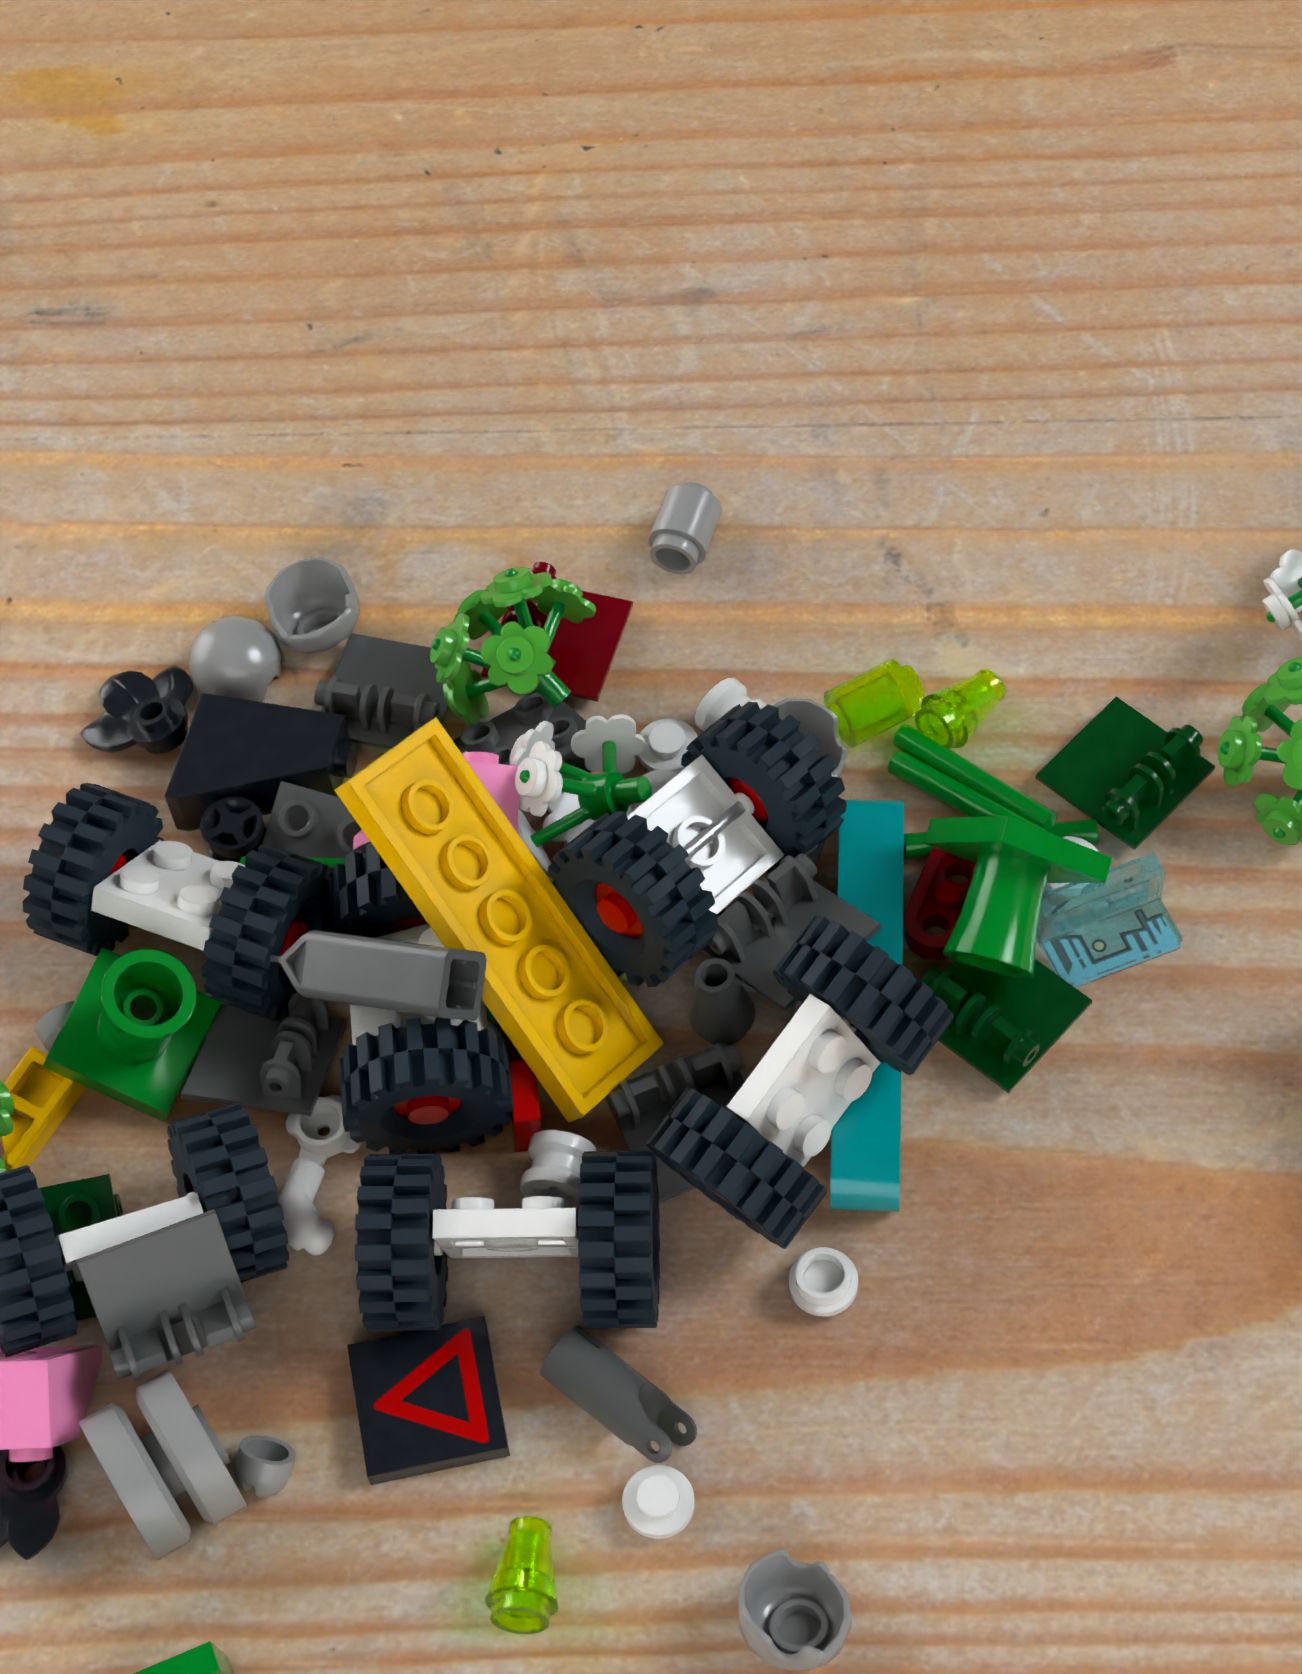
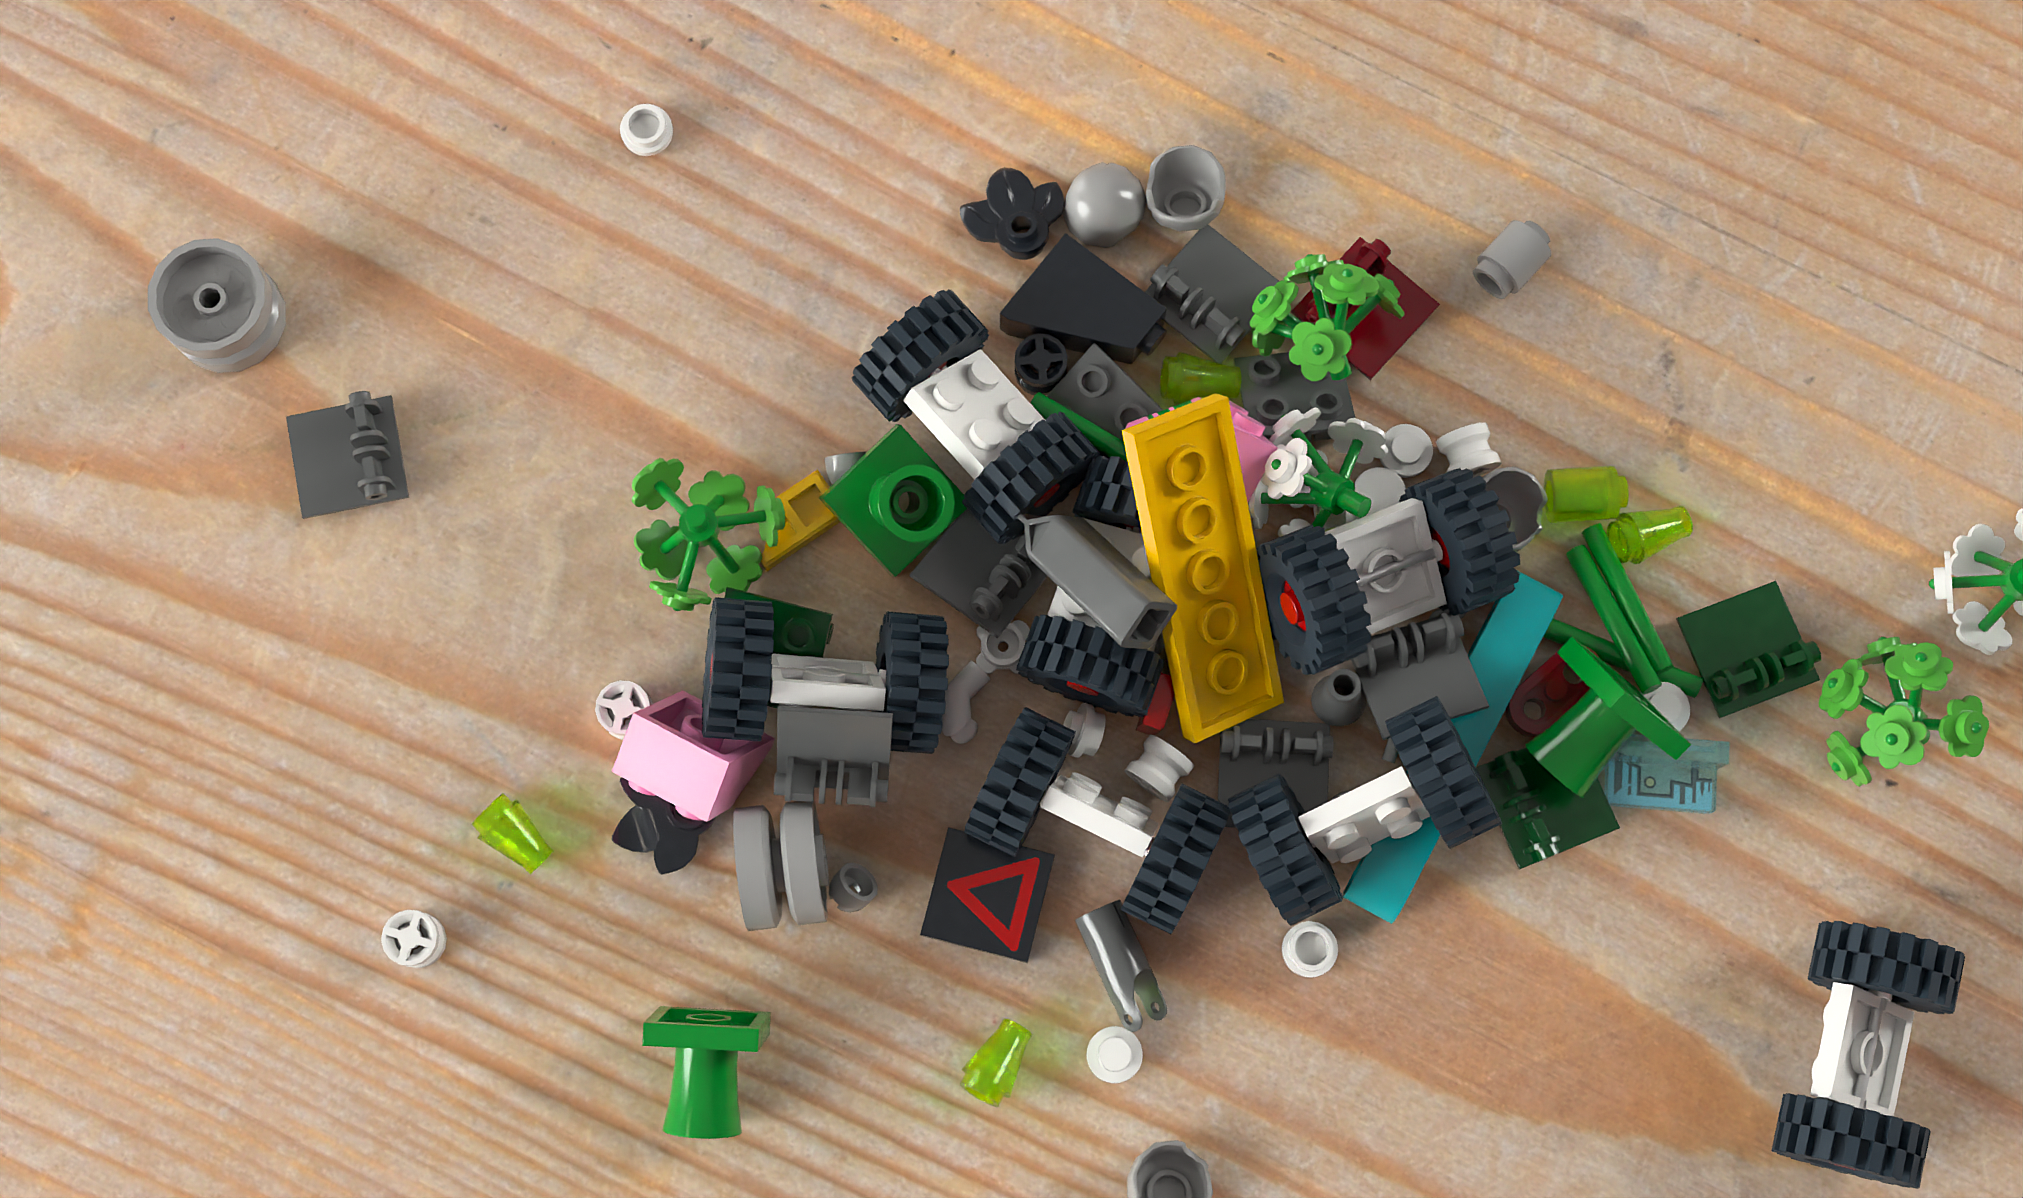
camera: 20 degrees right, 20 degrees up
(460, 1169) = (1089, 730): none -> white plate

